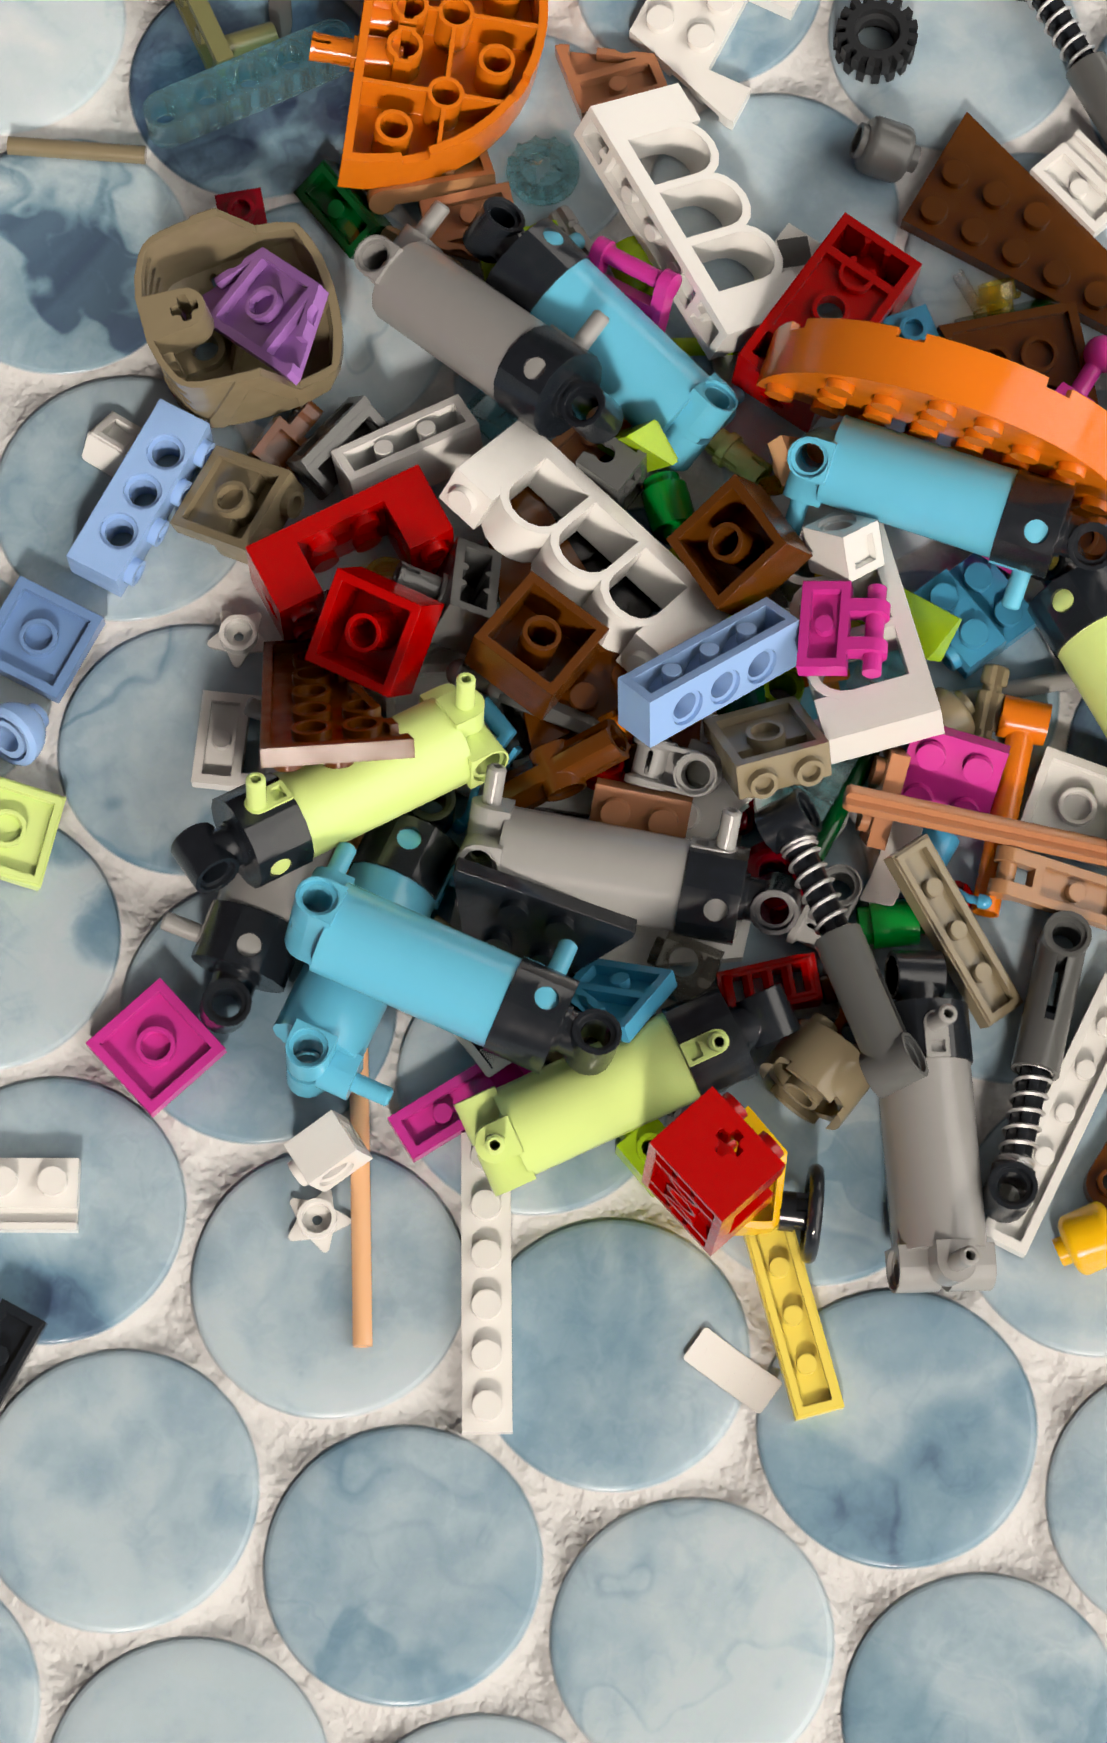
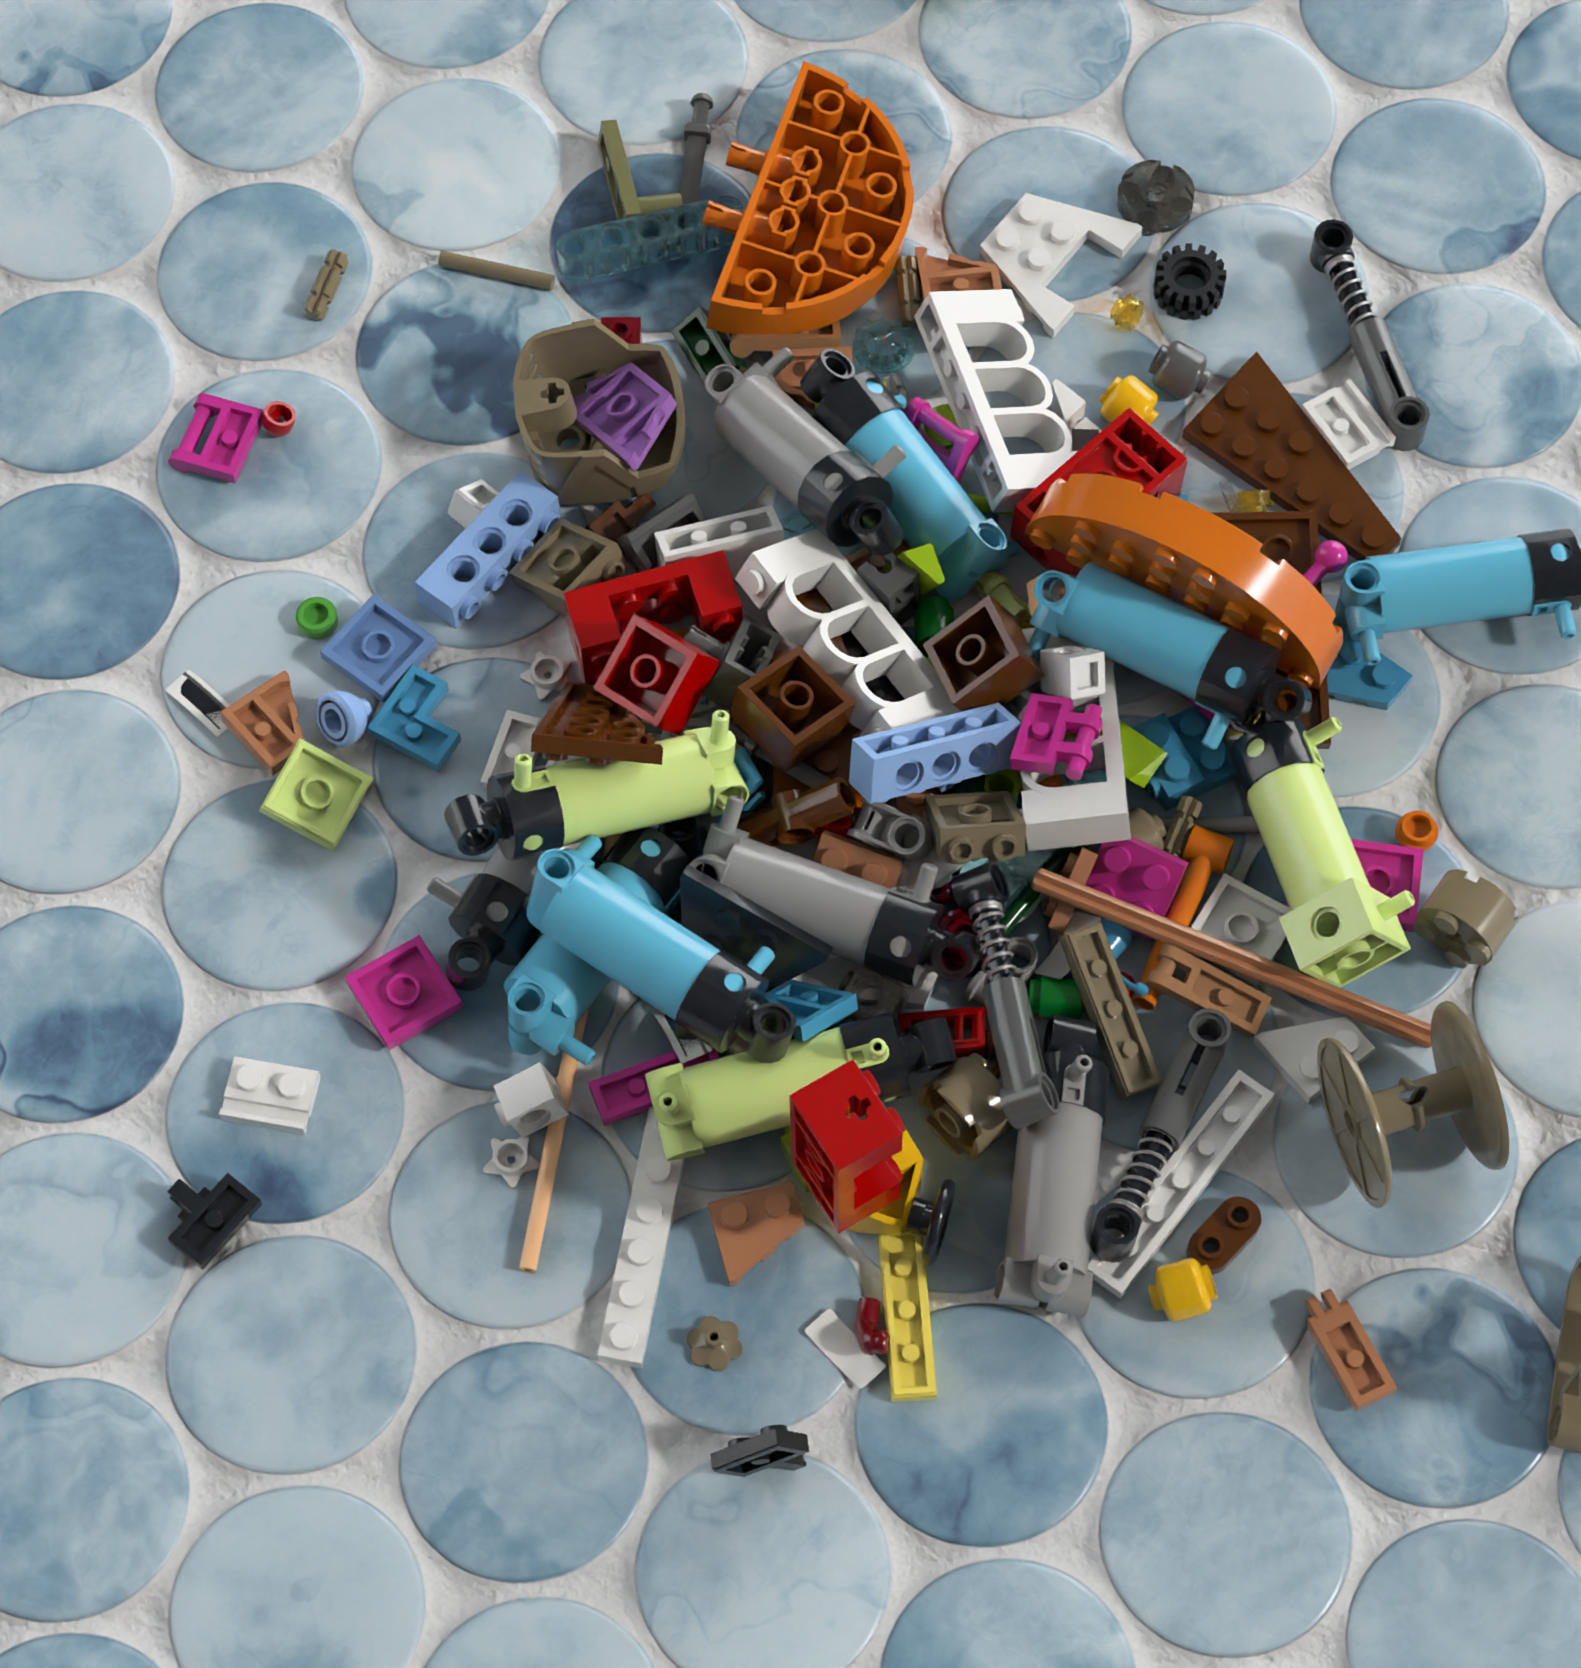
camera: 15 degrees right, 10 degrees down
(88, 720) = (407, 724): none -> dark azure plate
(557, 100) = (908, 289): none -> dark tan axle
(582, 1404) = (714, 1353): none -> dark tan plant
(604, 1249) = (753, 1226): none -> nougat wing
(683, 1507) = (772, 1448): none -> black hinge
(751, 1344) = (866, 1325): none -> dark red arm
(767, 212) = (1067, 404): none -> white slope
(811, 86) = (1127, 312): none -> clear yellow plate
(833, 194) = (1129, 393): none -> yellow head

